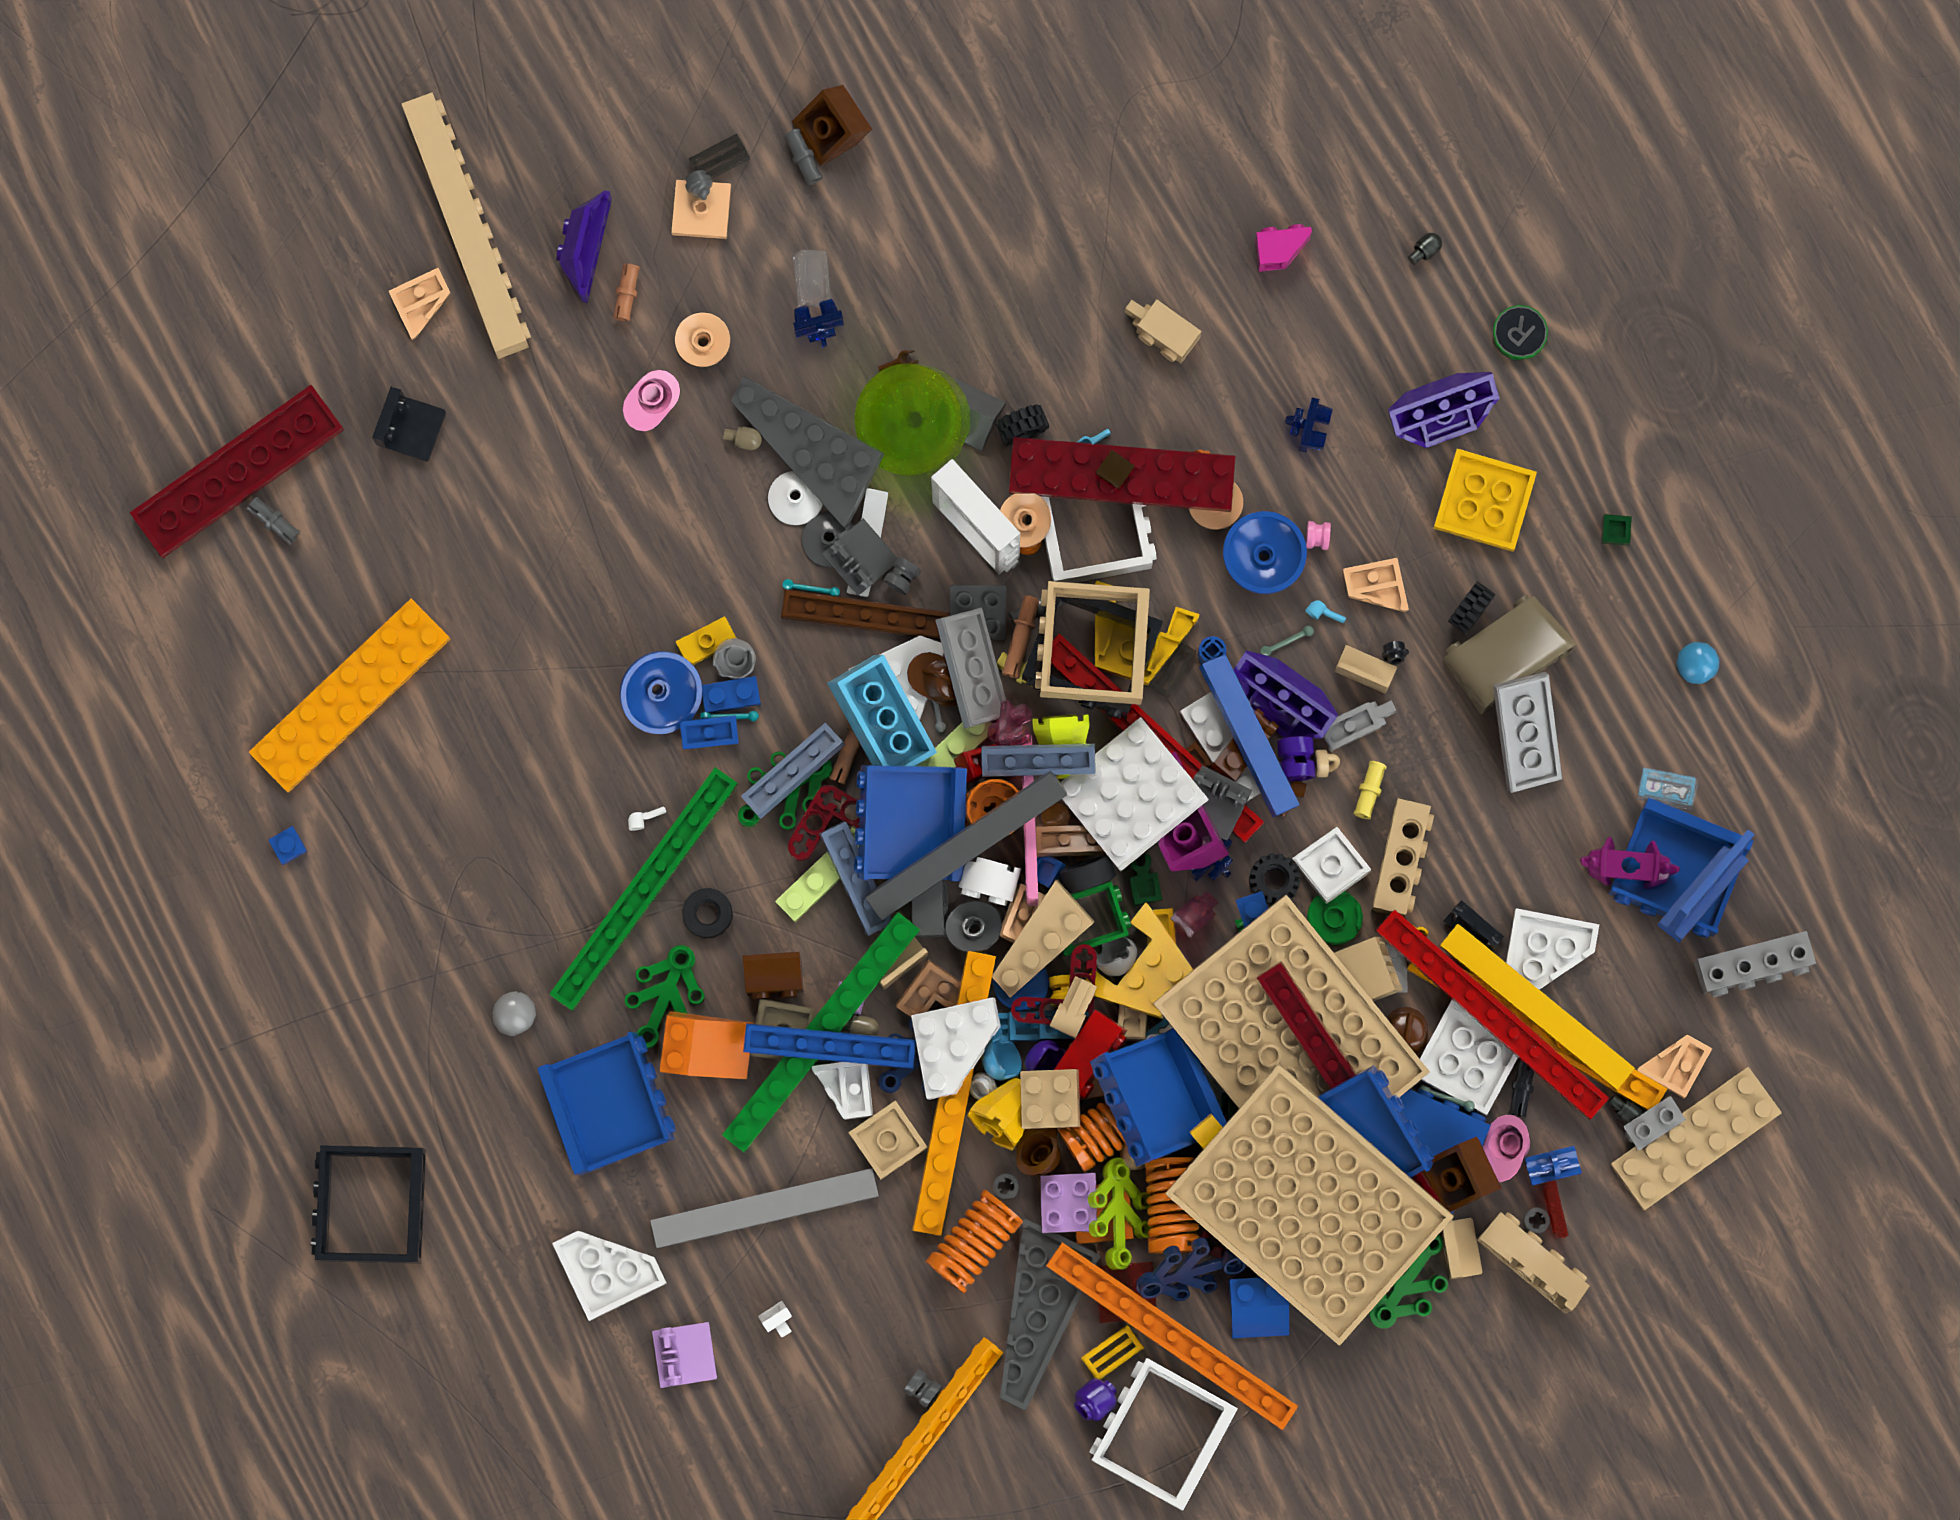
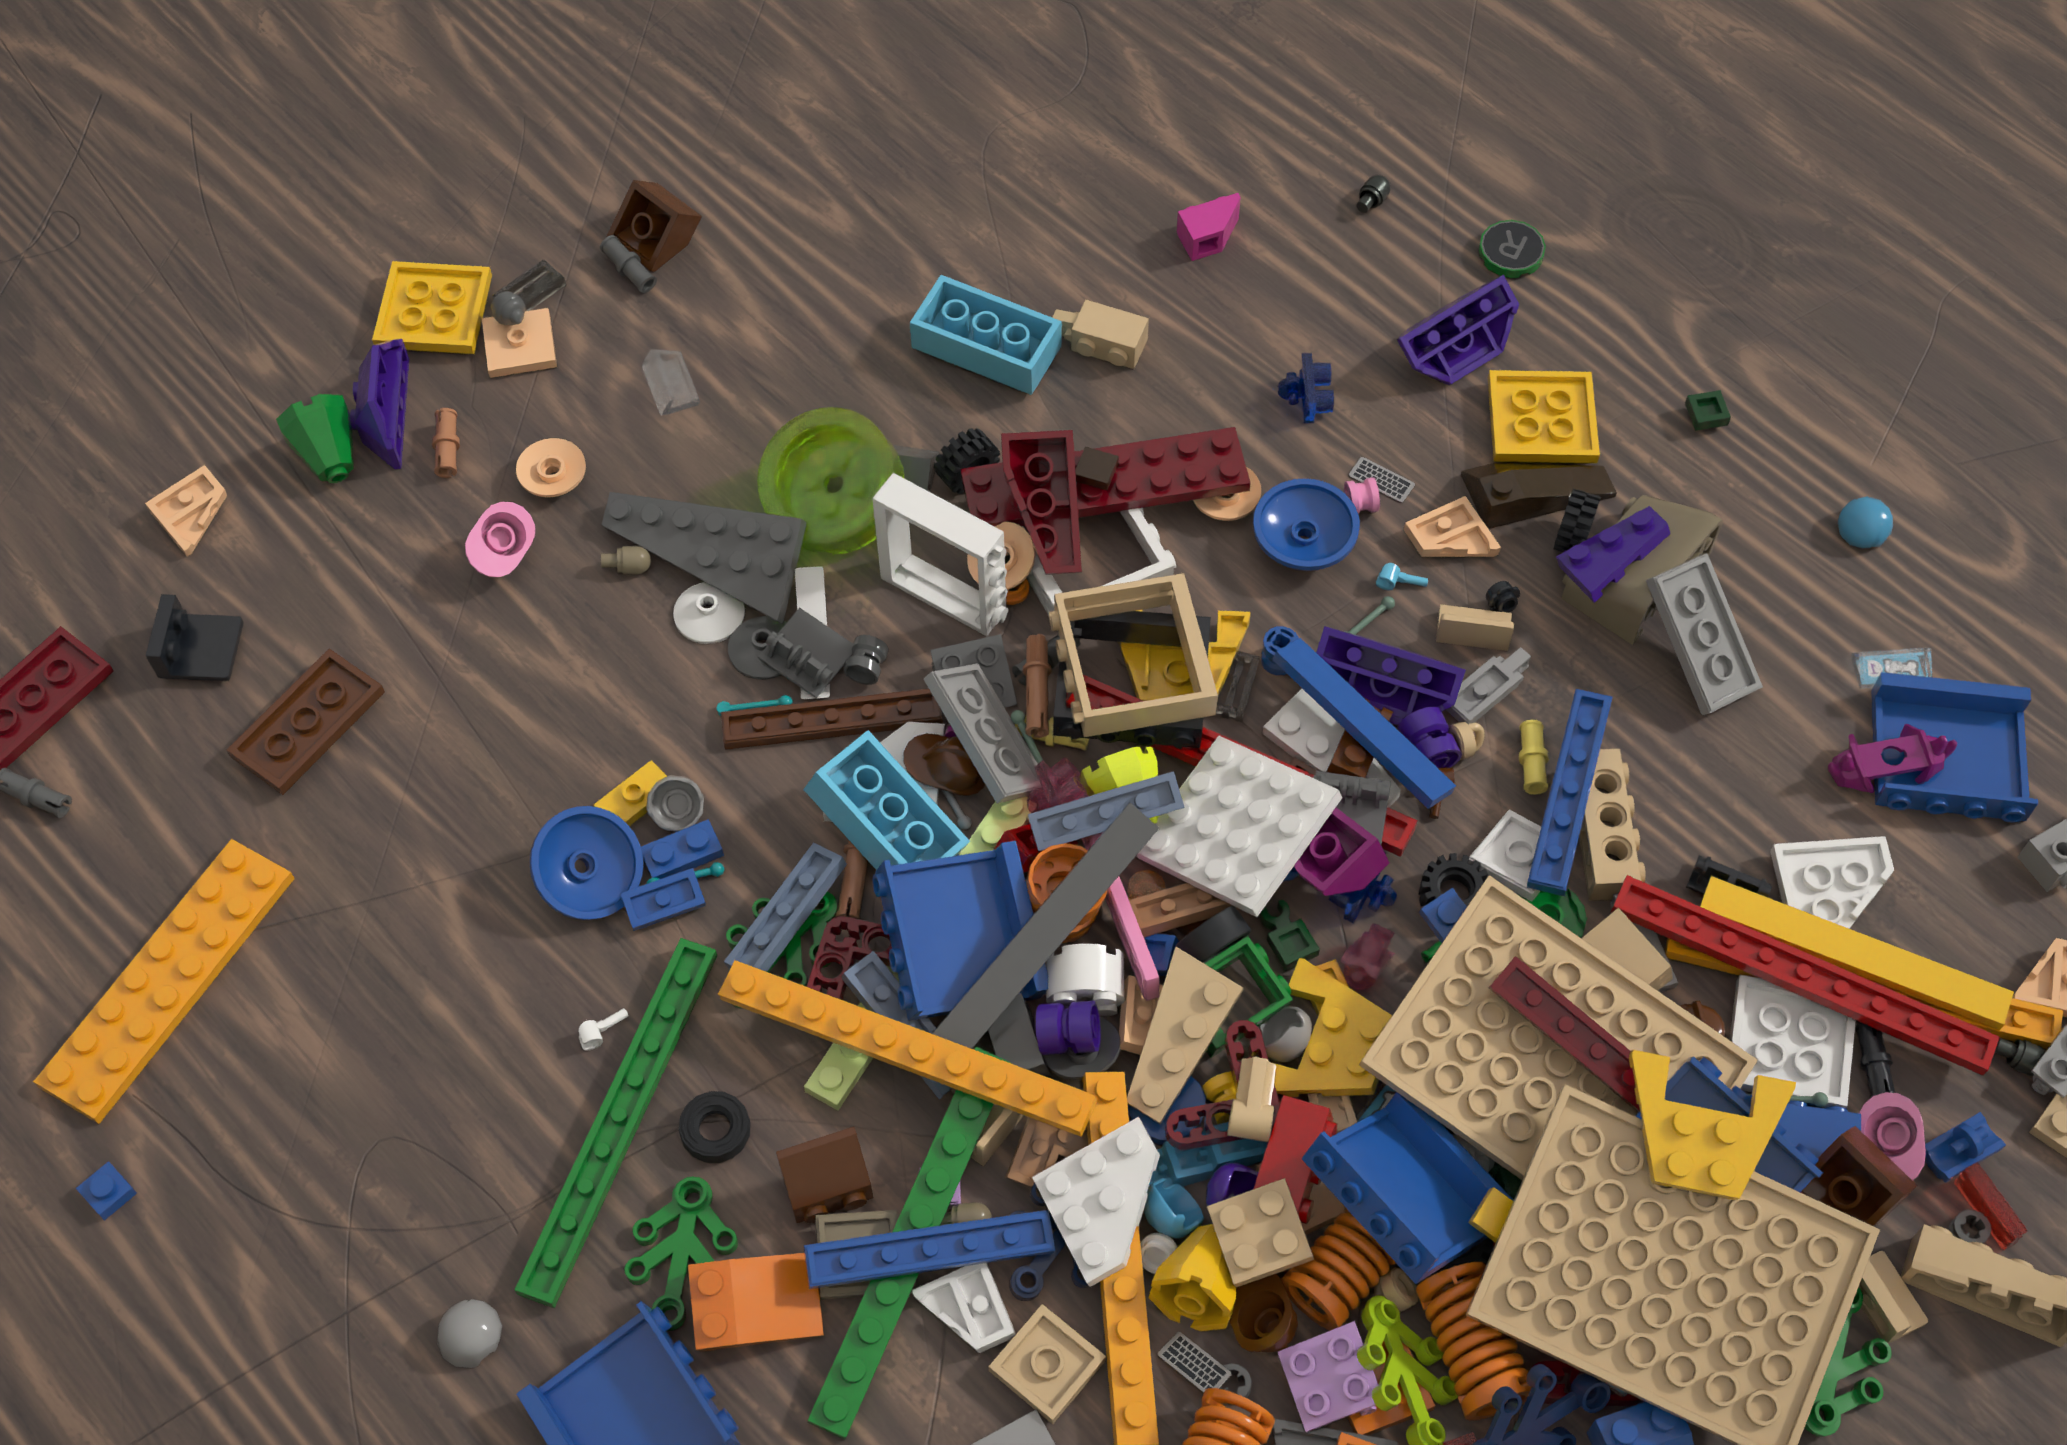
camera: 15 degrees left, 20 degrees down
(465, 225) = (235, 421): tan brick -> none
(479, 514) = (305, 721): none -> reddish brown plate
(532, 269) = (320, 435): none -> green cone
(639, 158) = (433, 306): none -> yellow plate
(829, 319) = (690, 421): clear blue hips -> none
(849, 900) = (909, 1048): none -> light orange plate
(966, 914) = (1068, 1027): none -> dark purple wheel
(985, 1166) = (1194, 1363): none -> sticker
(1000, 659) = (1018, 718): none -> sand green hinge
(1068, 479) = (1044, 487): none -> dark red wedge
(1069, 309) = (986, 334): none -> medium azure brick
(1341, 519) = (1387, 481): none -> sticker
(1354, 1132) = (1702, 1146): none -> yellow wing
(1380, 830) = (1569, 792): none -> blue tile
(1450, 560) = (1524, 491): none -> dark brown wedge
(1480, 646) = (1608, 553): none -> dark purple wing
(1705, 889) = (2002, 751): blue fence -> none

